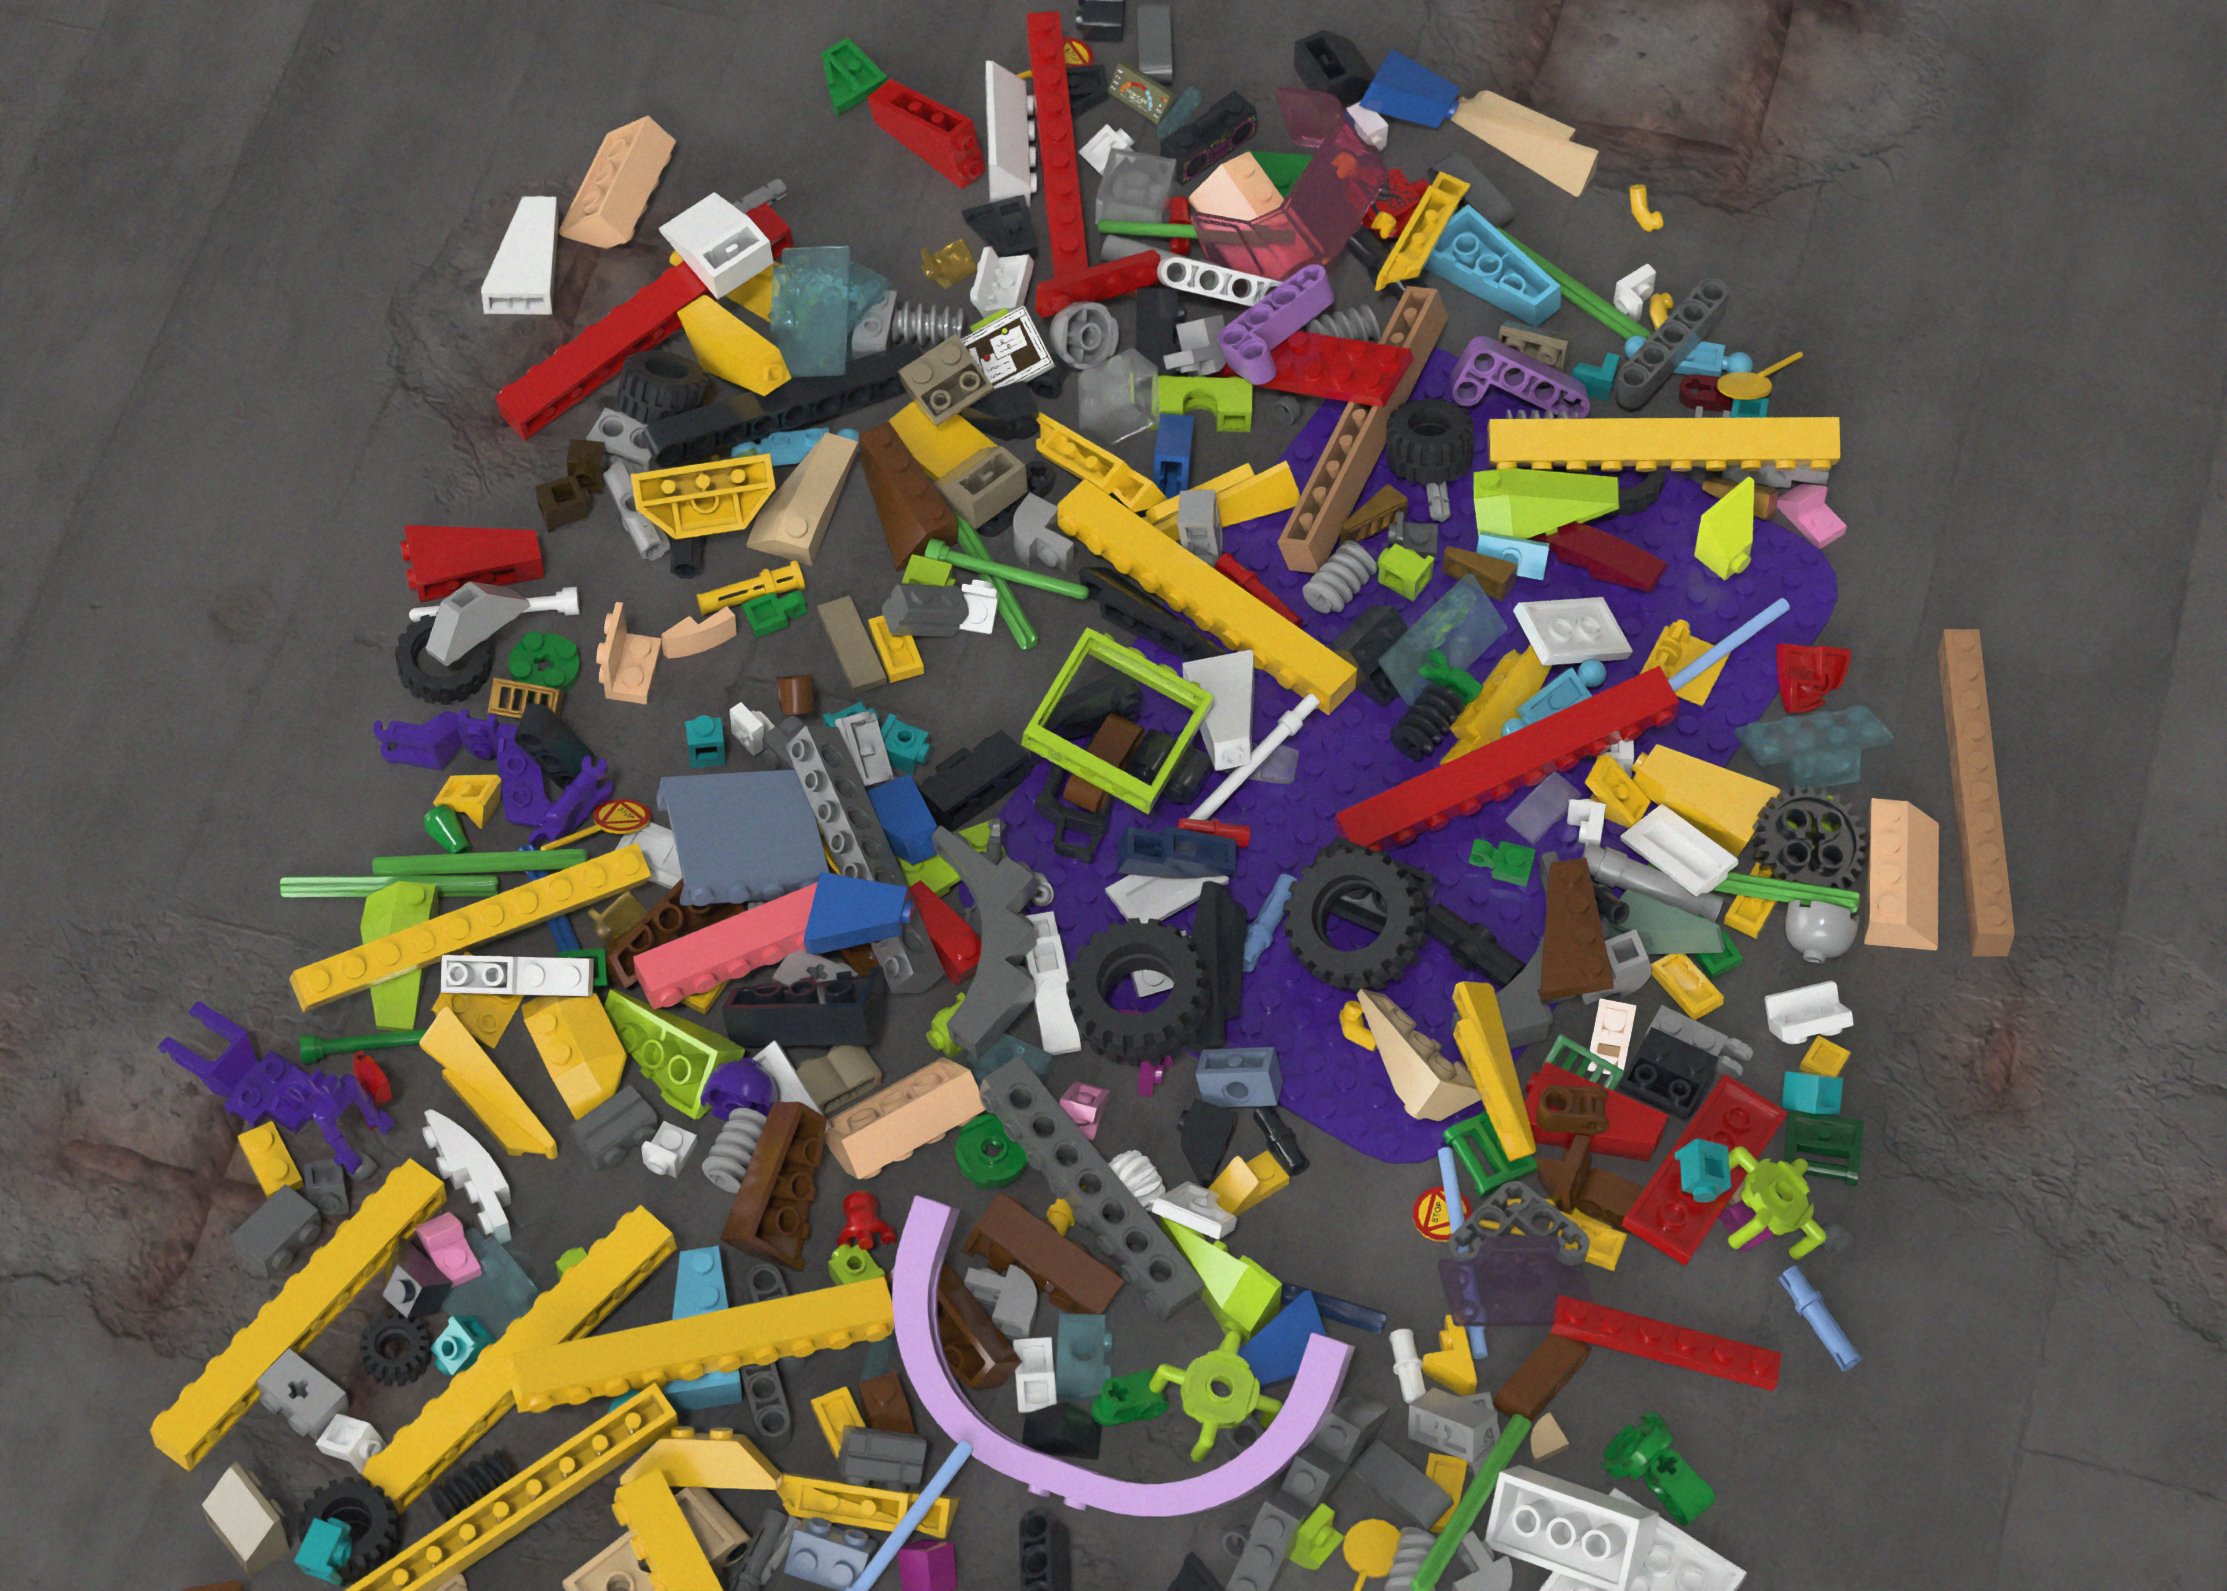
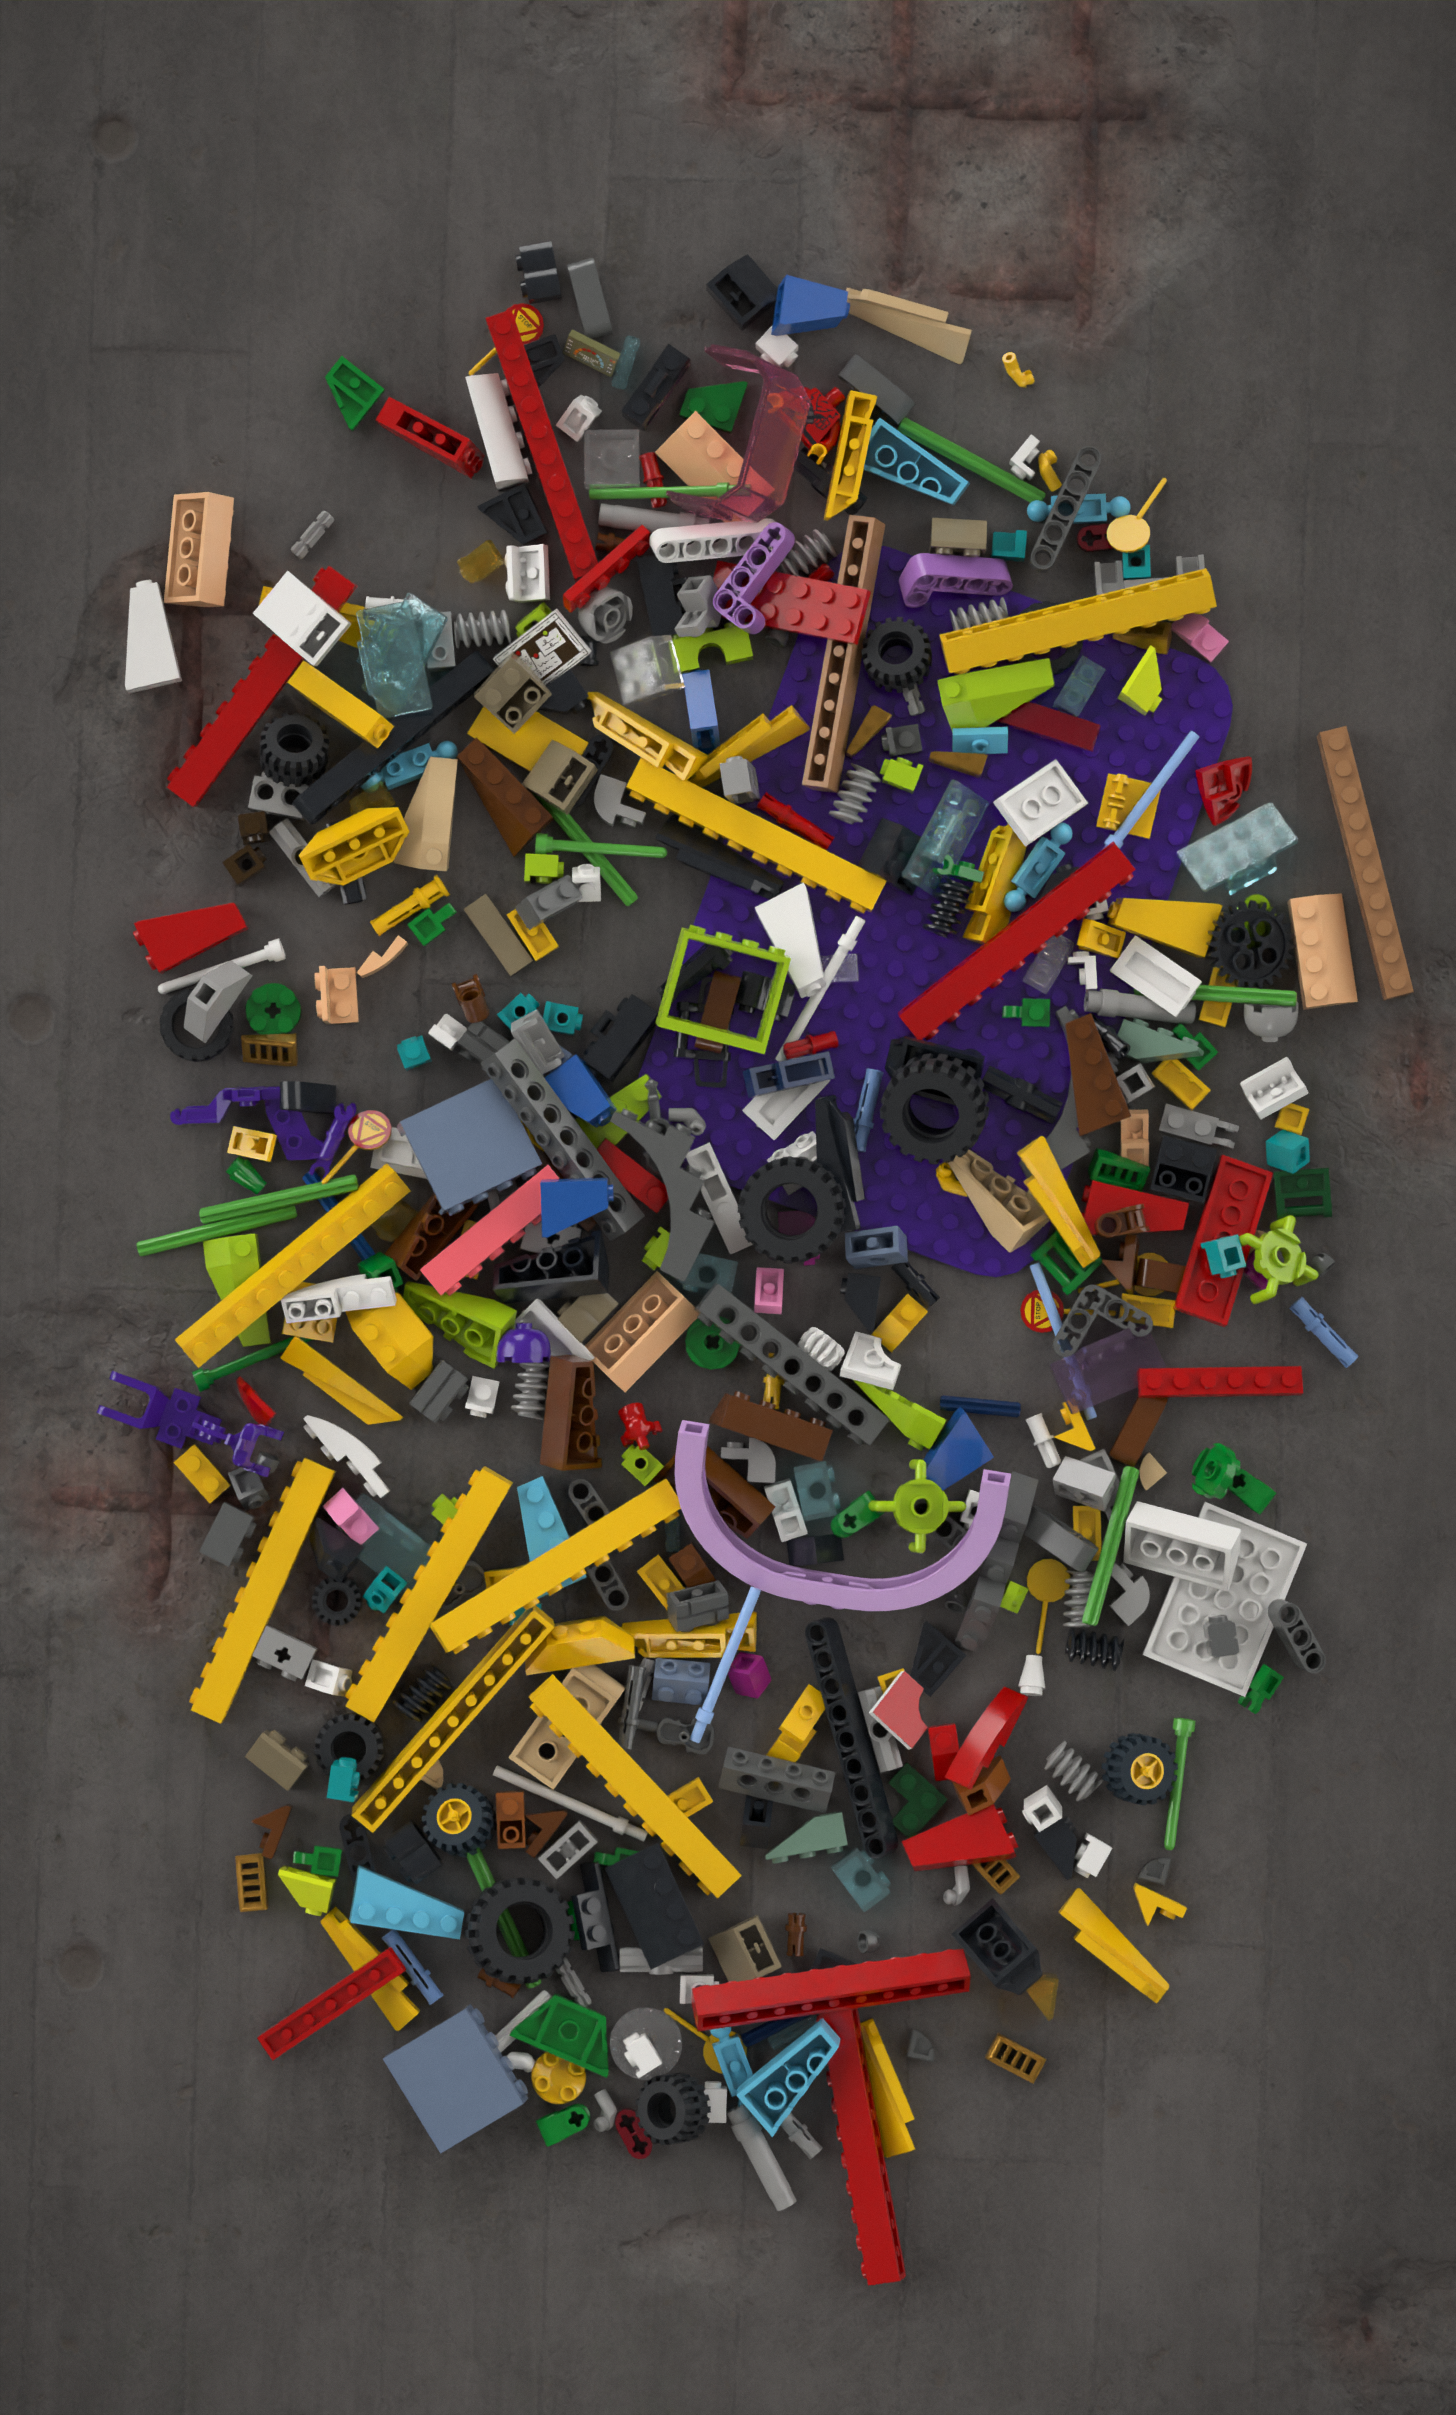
camera: 10 degrees left, 30 degrees up
(1652, 520) = (1079, 687): none -> clear light blue brick

